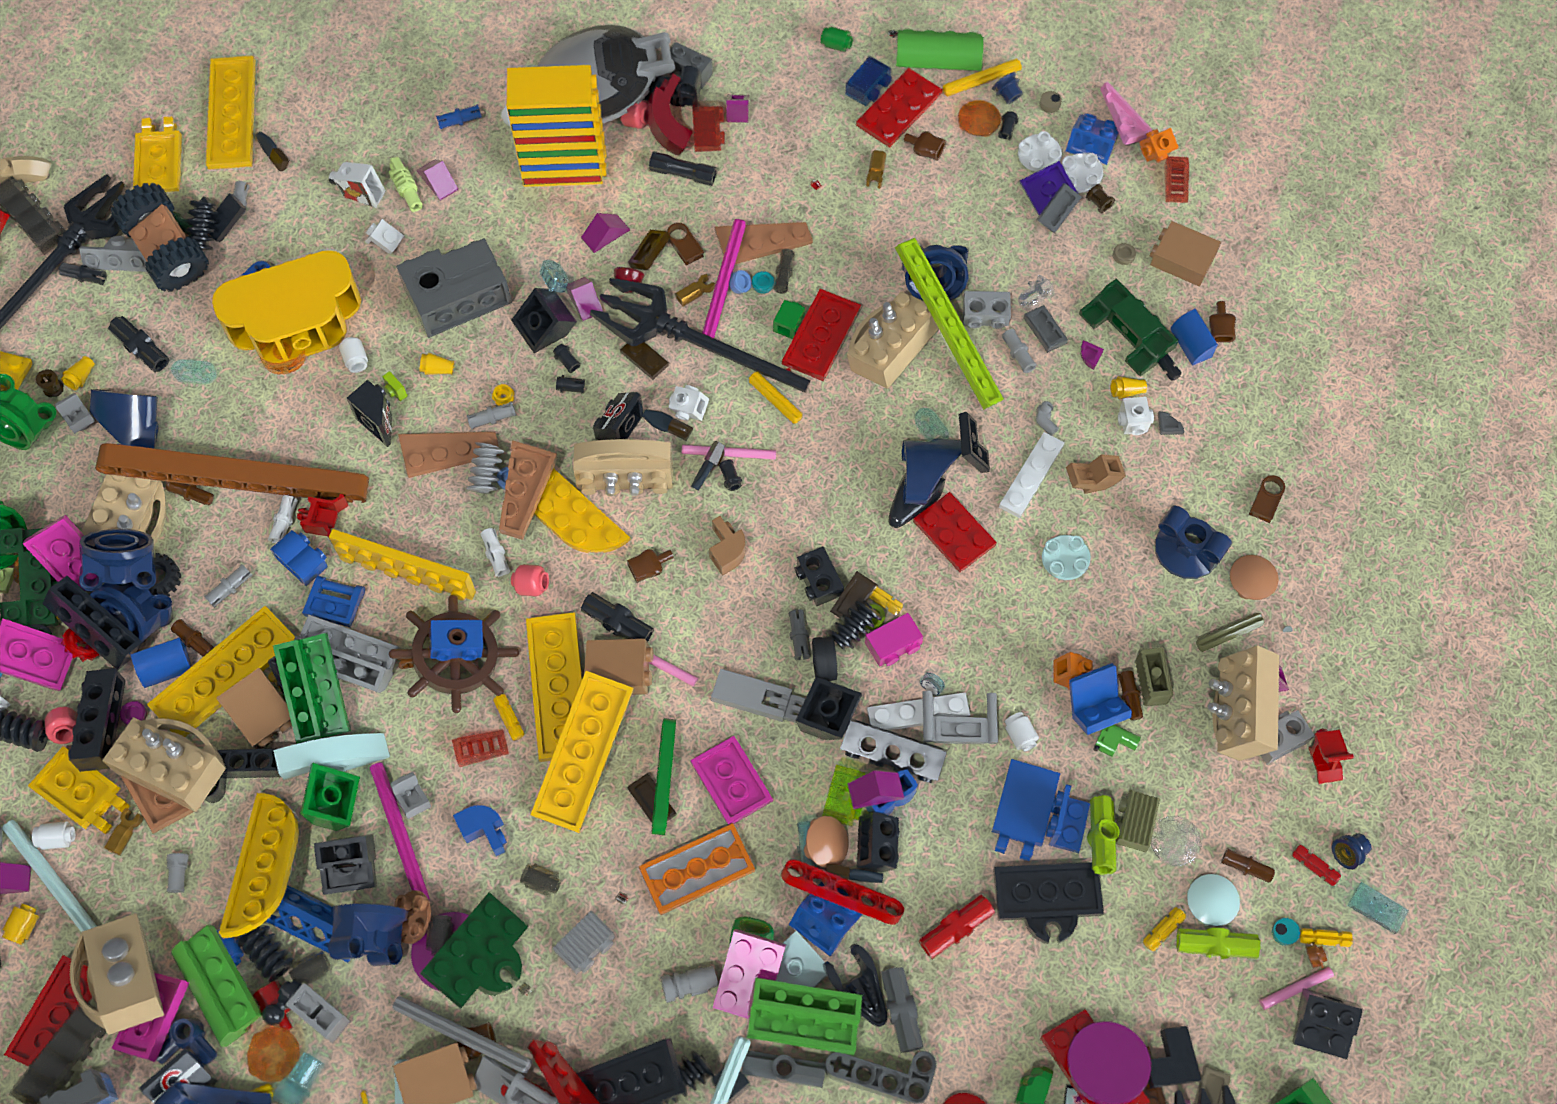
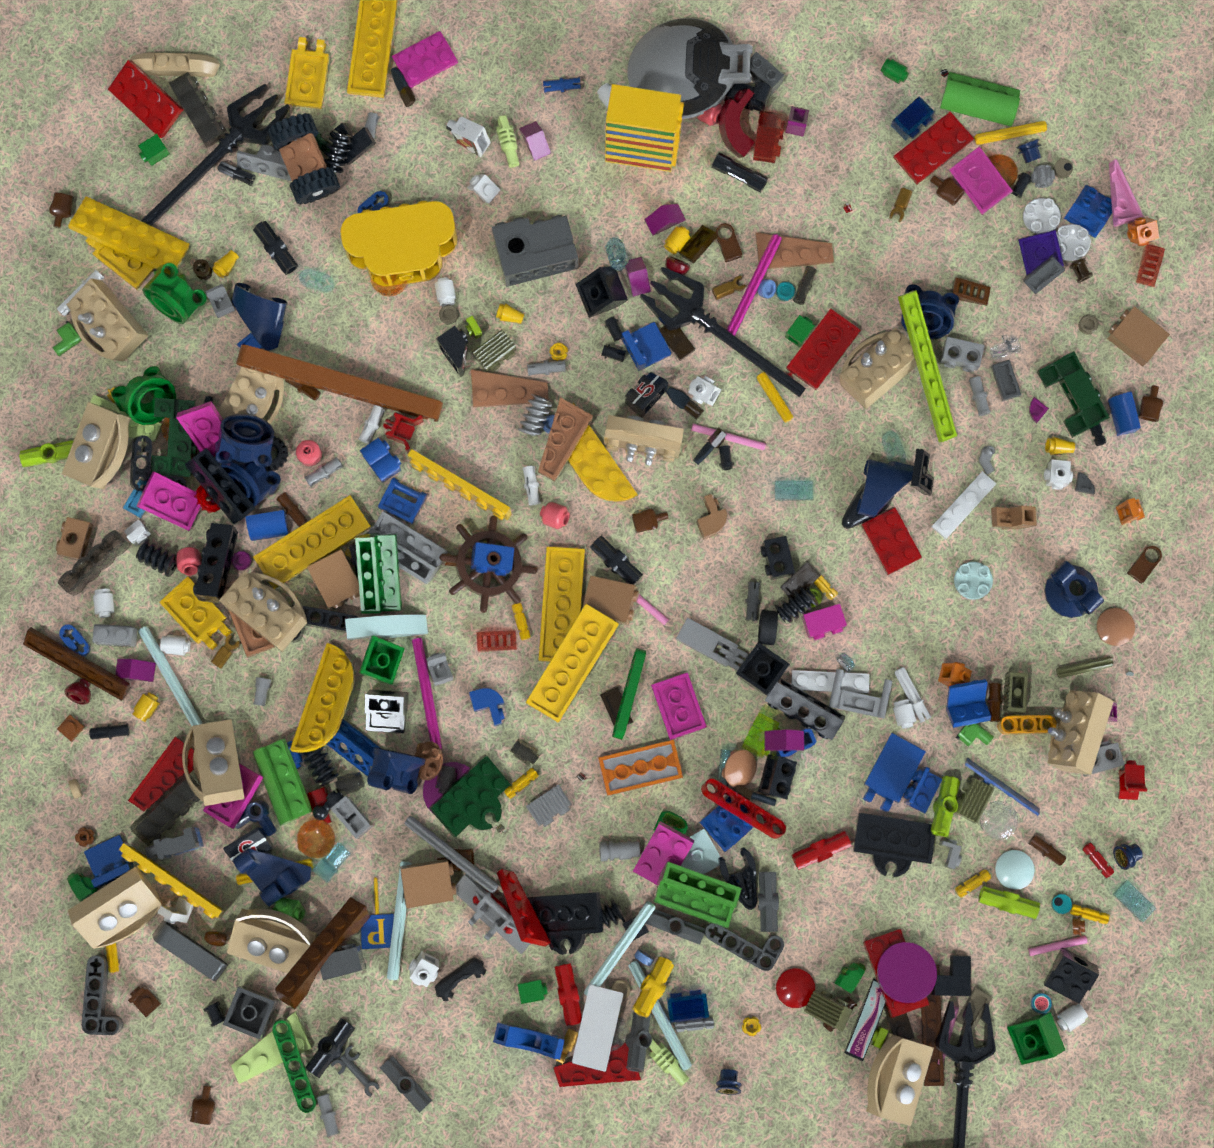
camera: 10 degrees right, 15 degrees up
(205, 565) = (311, 458): none -> coral head
(295, 119) = (425, 59): none -> dark pink plate
(359, 376) = (448, 314): none -> dark tan tile
(424, 408) = (494, 351): none -> olive brick
(542, 922) = (521, 783): none -> yellow axle
(607, 369) = (646, 346): none -> blue bracket
(623, 249) = (677, 240): none -> yellow brick
(821, 496) = (793, 490): none -> clear light blue plate
(961, 127) = (980, 180): none -> dark pink plate
(971, 236) = (972, 285): none -> reddish brown slope
(1025, 706) = (912, 694): none -> white axle
(1030, 111) = (1043, 176): none -> light grey gear
(1130, 900) = (953, 856): none -> light grey bracket
(1149, 790) = (989, 778): none -> blue piece
(1169, 721) = (1035, 722): none -> light orange beam
(1232, 440) = (1130, 511): none -> orange plate
(1296, 1070) = (1041, 1003): none -> tile
(1343, 1080) = (1072, 1017): none -> white brick

